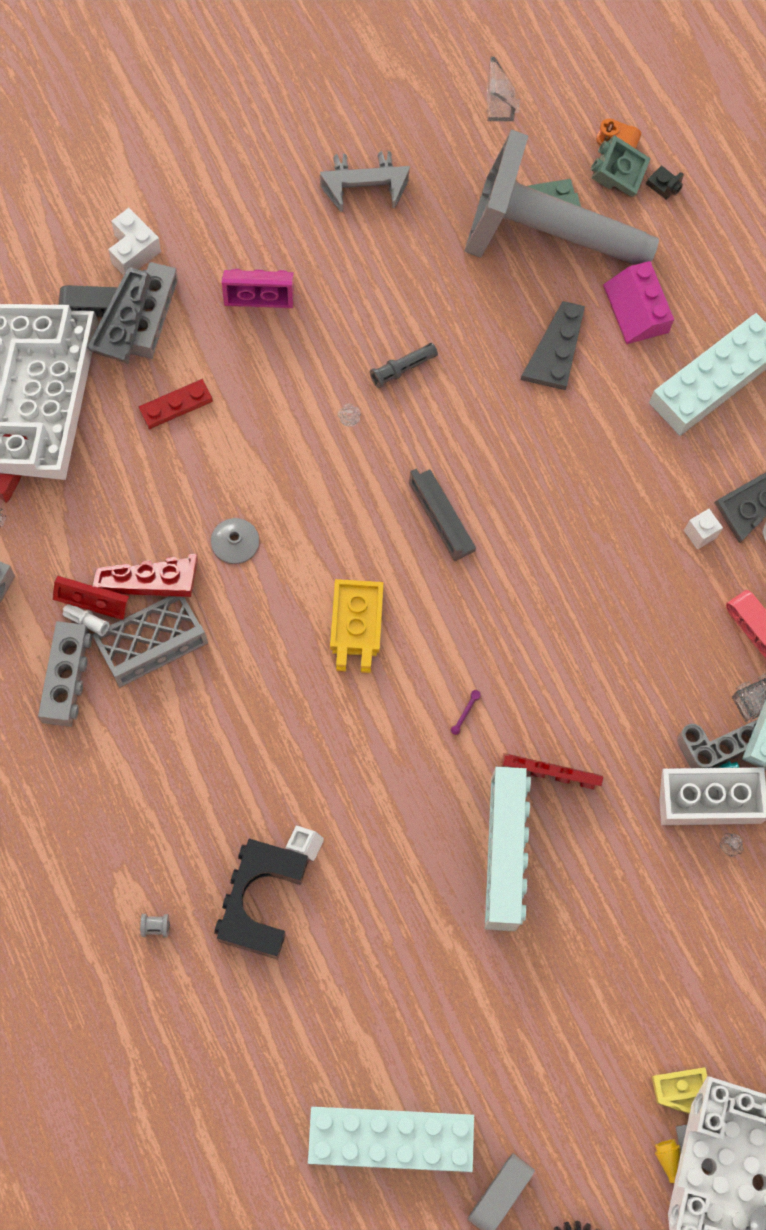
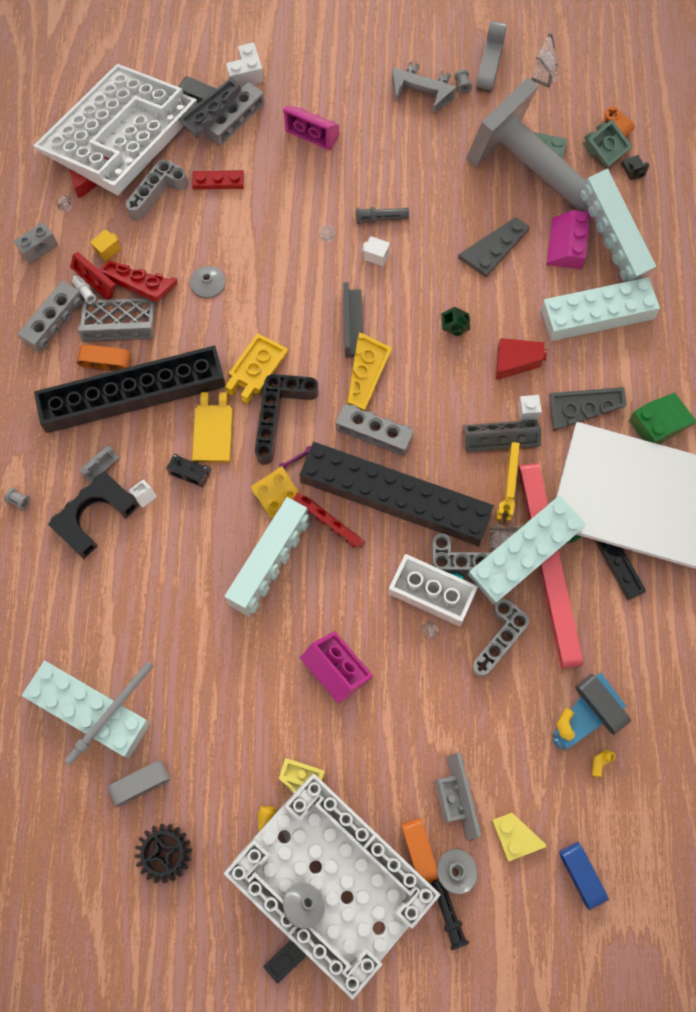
camera: 35 degrees right, 0 degrees up
(82, 550) = (105, 245): none -> yellow brick
(103, 453) = (153, 185): none -> light grey beam
(162, 696) = (103, 357): none -> orange beam
(220, 721) = (129, 389): none -> black brick
(231, 832) = (99, 463): none -> light grey hinge
(347, 788) = (188, 470): none -> black hinge
(348, 725) = (212, 430): none -> yellow tile
(409, 667) = (272, 410): none -> black beam
(410, 154) = (463, 82): none -> light grey bush
(419, 1183) = (82, 745): none -> light grey bar
(422, 413) = (376, 251): none -> white brick
(427, 109) = (491, 55): none -> light grey beam
(467, 765) = (274, 490): none -> yellow hinge
(491, 564) = (367, 366): none -> yellow wing
(565, 461) = (455, 321): none -> dark green brick
(577, 624) = (380, 438): none -> light grey brick
(607, 701) = (396, 493): none -> black brick
(651, 940) = (336, 666): none -> dark pink slope
(656, 471) = (518, 356): none -> red slope
(690, 576) = (501, 435): none -> dark grey fence
(694, 268) = (617, 226): none -> light aqua brick
(731, 629) = (508, 504): none -> yellow tile

